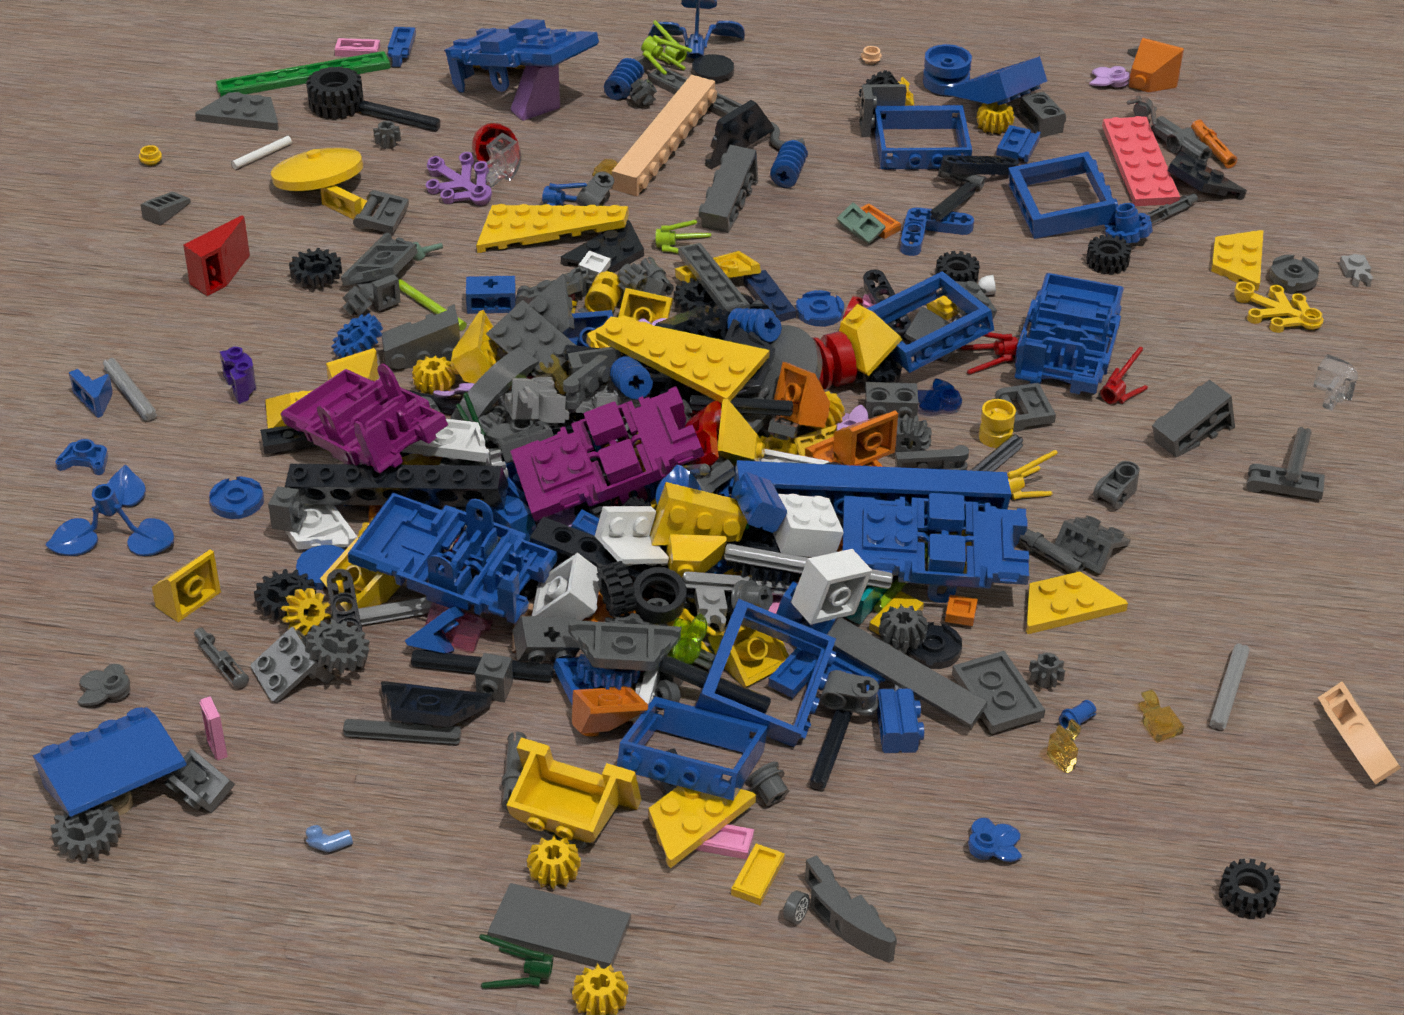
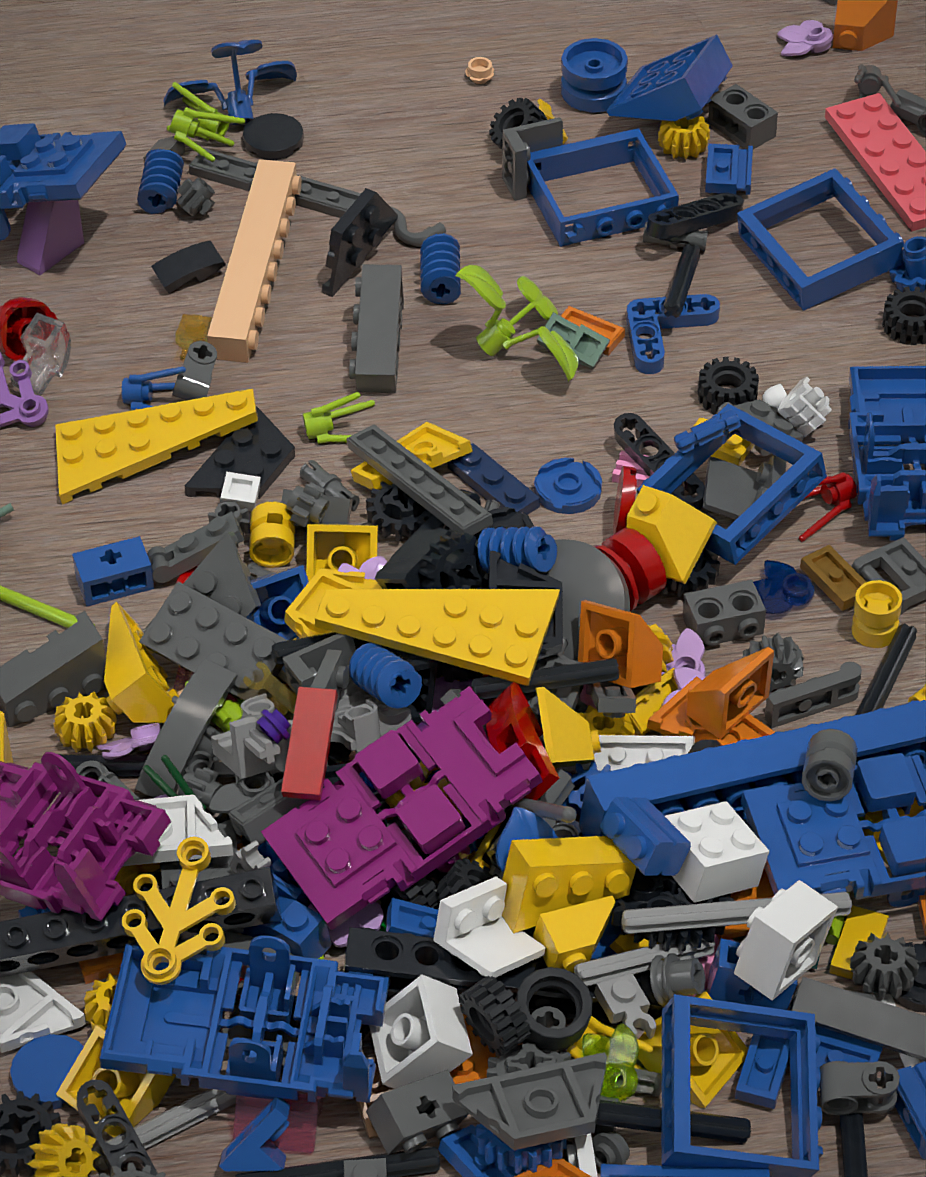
camera: 15 degrees left, 5 degrees up
(410, 504) = (177, 917): none -> yellow plant
(539, 384) = (274, 725): none -> dark purple plate
(559, 401) = (309, 743): none -> tile
(627, 129) = (180, 267): none -> black slope
(812, 208) = (499, 333): none -> lime plant
(906, 488) = (829, 765): none -> dark grey wheel
(919, 284) = (707, 431): none -> blue axle
(976, 393) = (833, 575): none -> pearl gold plate
(1004, 292) = (805, 407): none -> white hand

